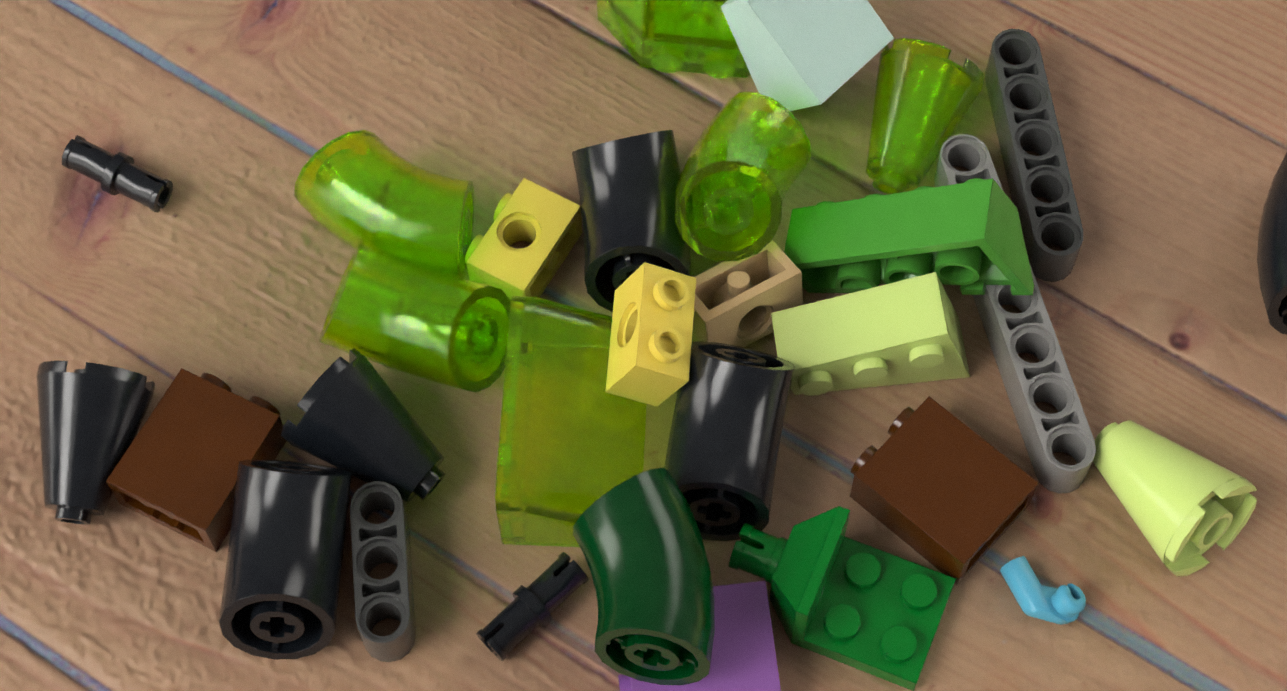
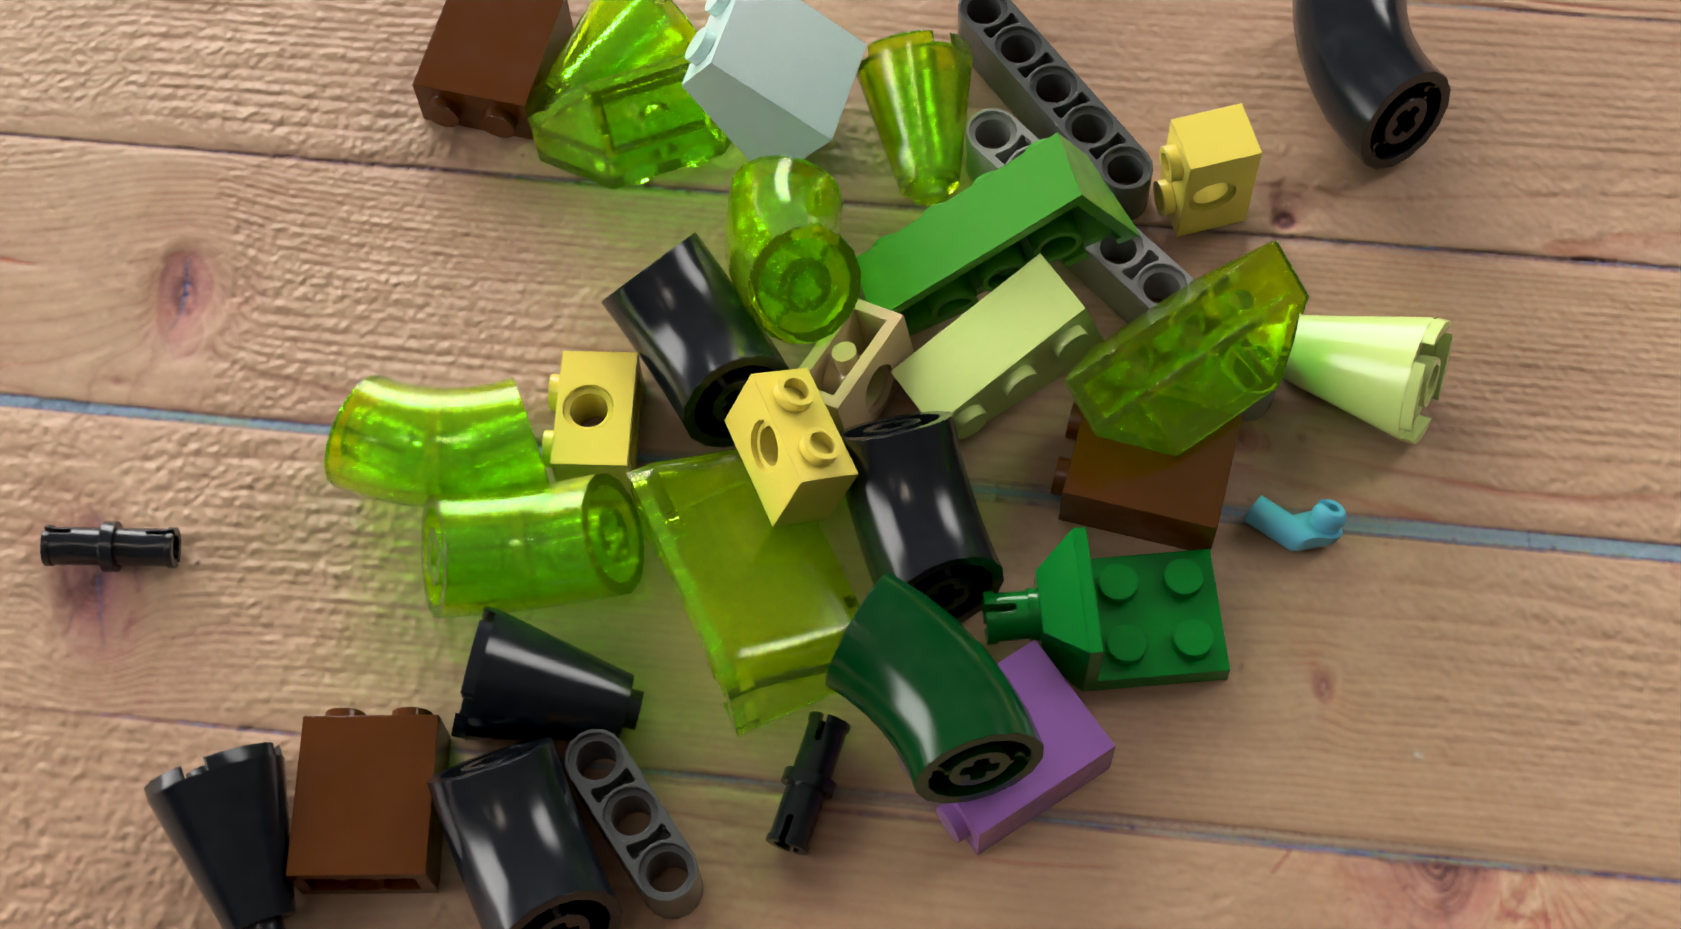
camera: 25 degrees left, 0 degrees up
(1015, 415) = (1194, 356): none -> clear neon green wedge
(1124, 267) = (1207, 170): none -> light yellow brick

